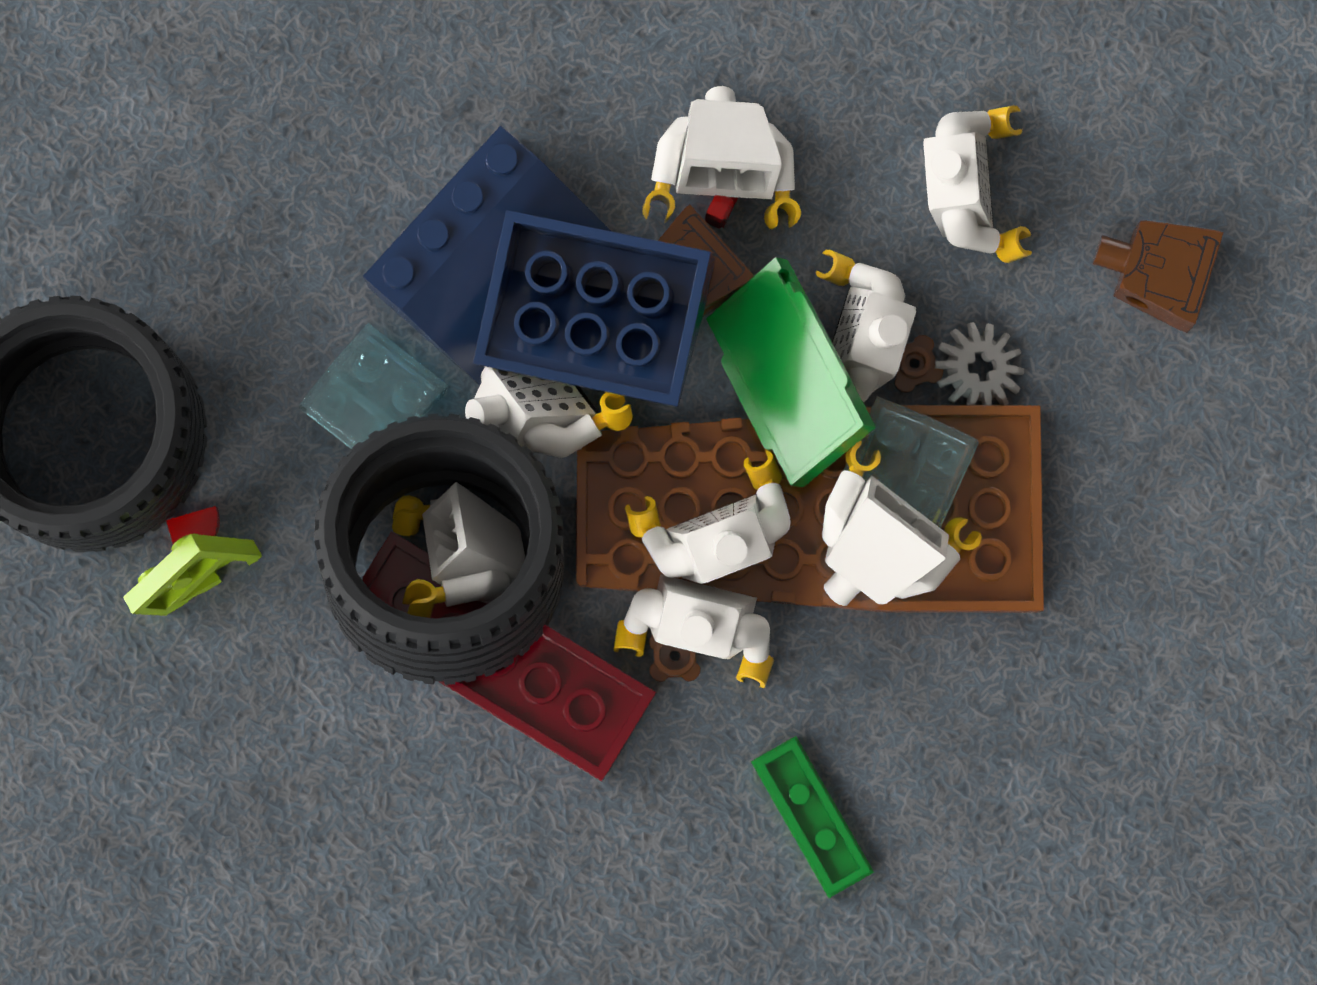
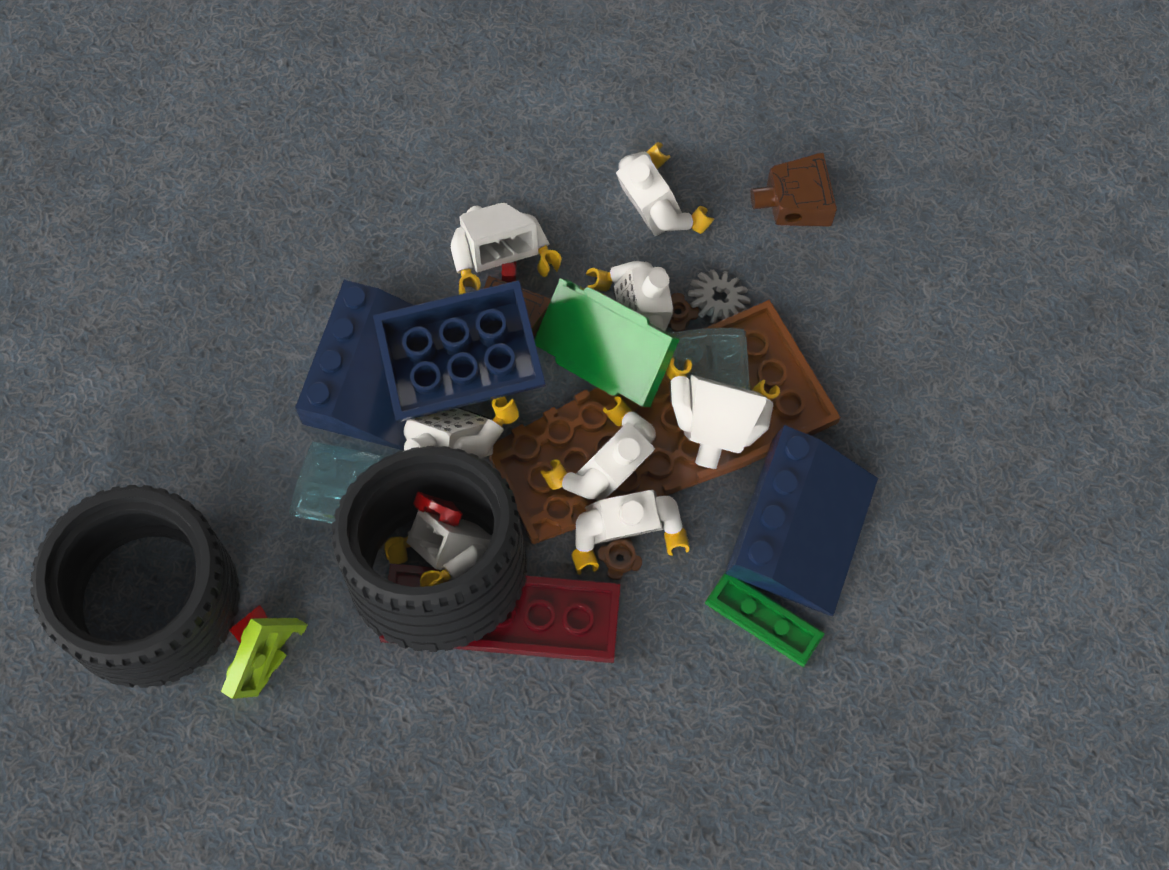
camera: 30 degrees left, 15 degrees down
(477, 498) = (446, 510): none -> red tile
(920, 724) = (803, 521): none -> dark blue slope

